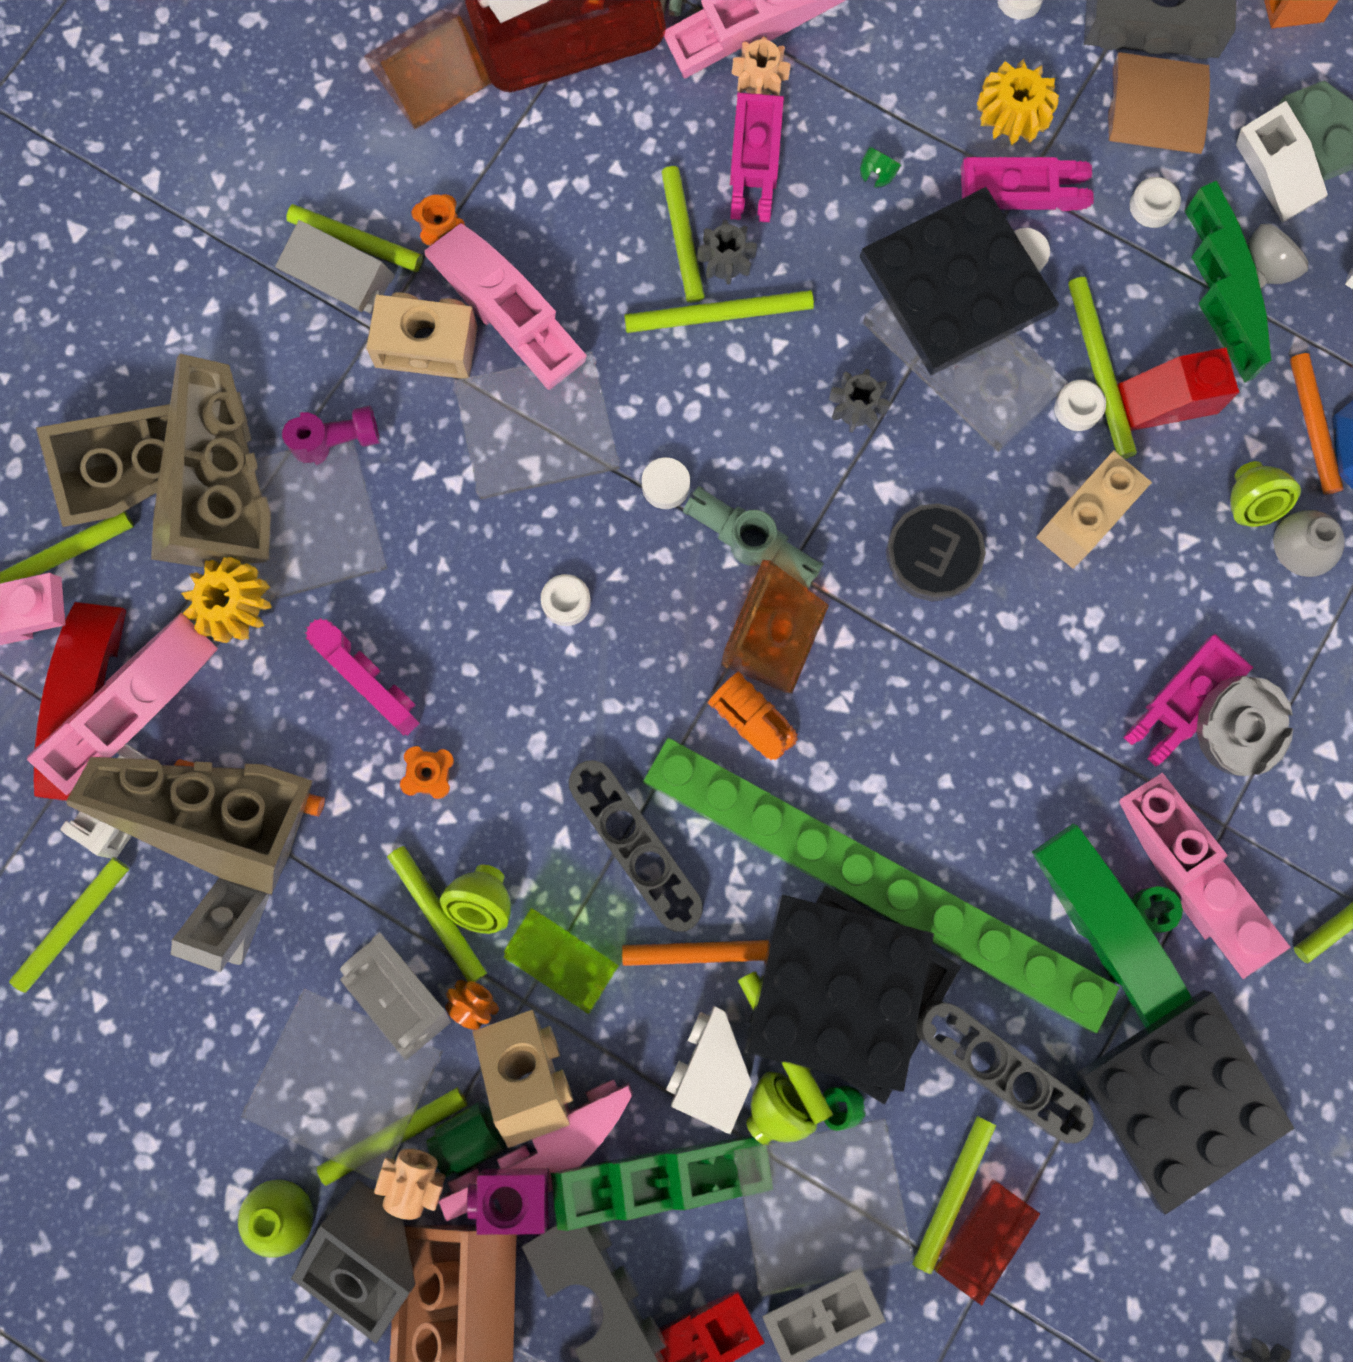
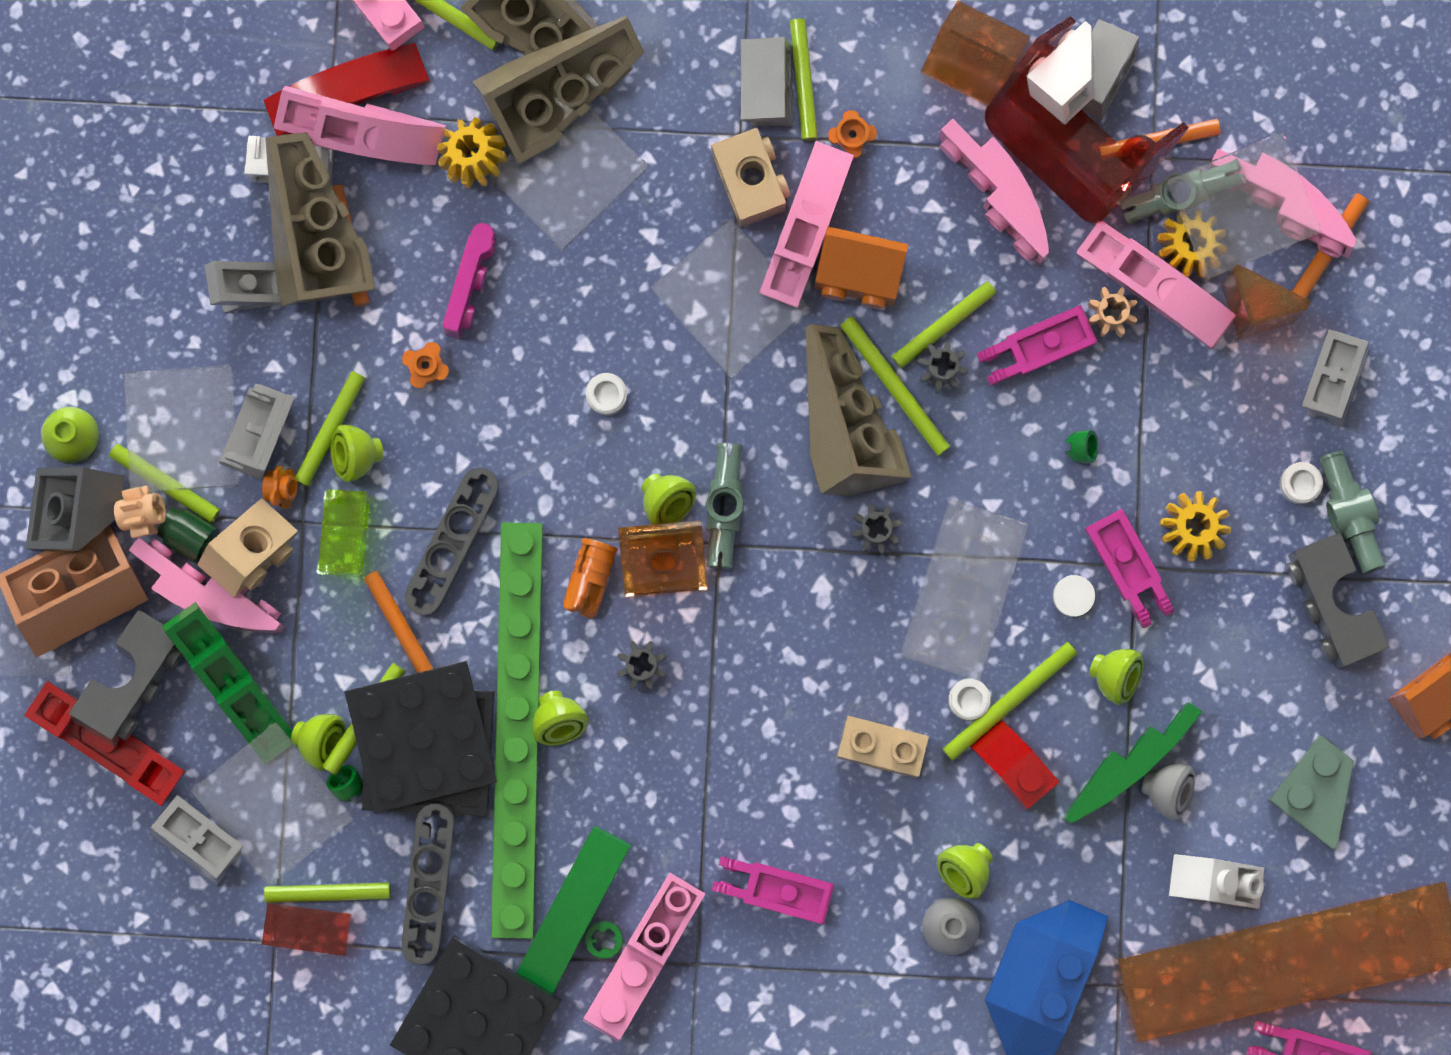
camera: 65 degrees right, 5 degrees up
(69, 925) = (189, 178): lime bar -> none
(311, 438) = (625, 144): magenta leg -> none
(533, 1189) = (176, 597): magenta brick -> none
(582, 267) = (860, 268): none -> orange slope
(594, 99) = (1011, 201): none -> bright pink slope
(665, 483) = (735, 419): white tile -> none
(713, 592) = (667, 498): none -> lime brick
(715, 1077) = (320, 683): white slope -> none
(751, 382) = (847, 436): none -> dark tan wedge
(876, 699) = (637, 655): none -> dark grey gear
(891, 831) = (558, 719): none -> lime brick
(935, 552) = (790, 647): black tile -> none
(958, 280) = (1010, 554): black plate -> none
(1129, 247) = (1118, 674): none -> lime brick
(1155, 202) = (1174, 676): white tile -> none
(1159, 103) = (1260, 638): medium nougat slope -> none
(1244, 726) = (774, 939): flat silver tile -> none
(1282, 161) = (1253, 758): white slope -> none
(1316, 423) = (1054, 887): orange bar -> none

